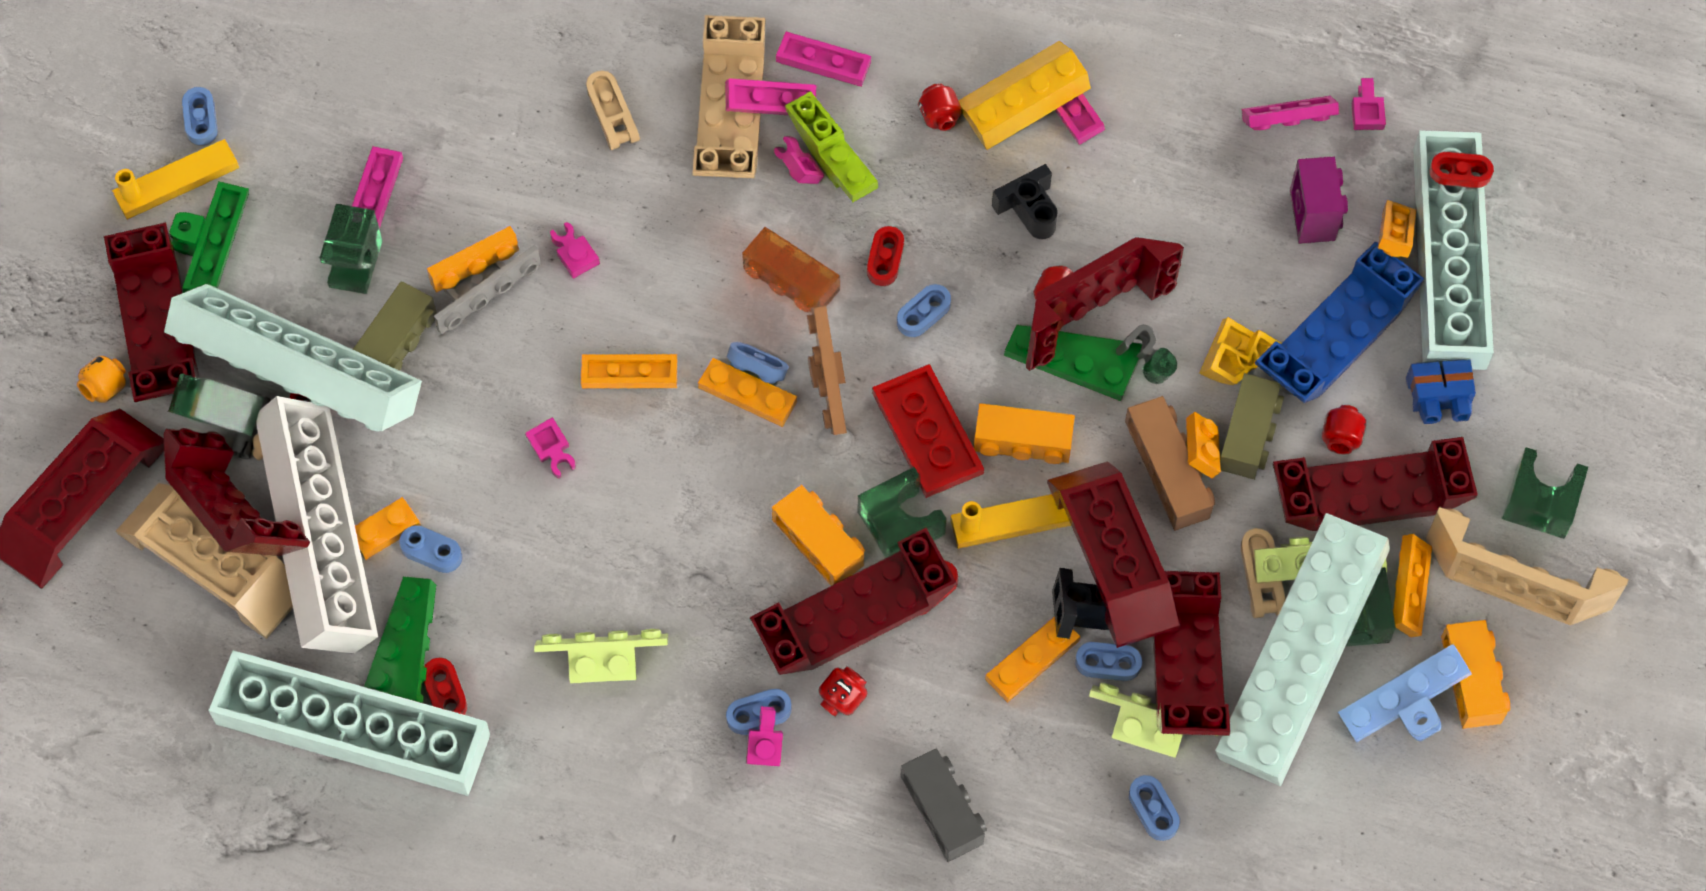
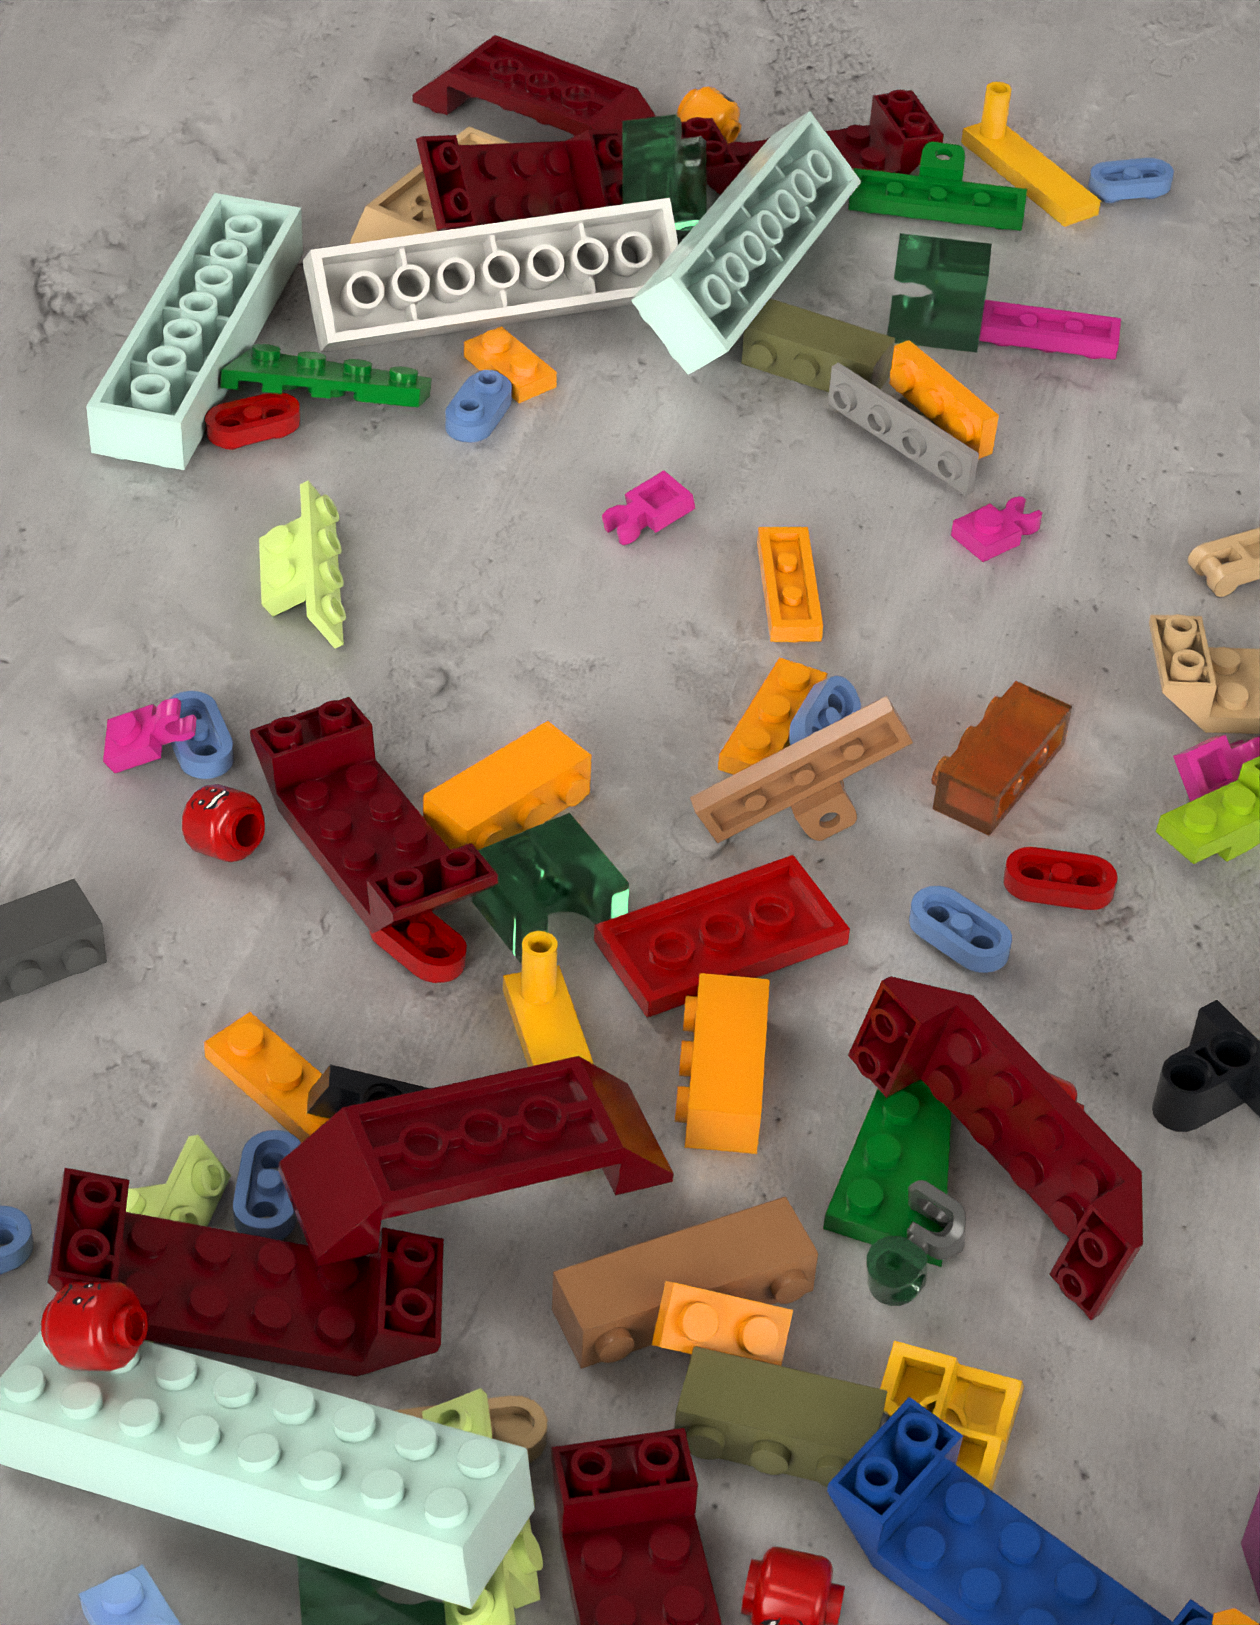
camera: 85 degrees right, 20 degrees down
(1251, 714) = (94, 1325): none -> red head

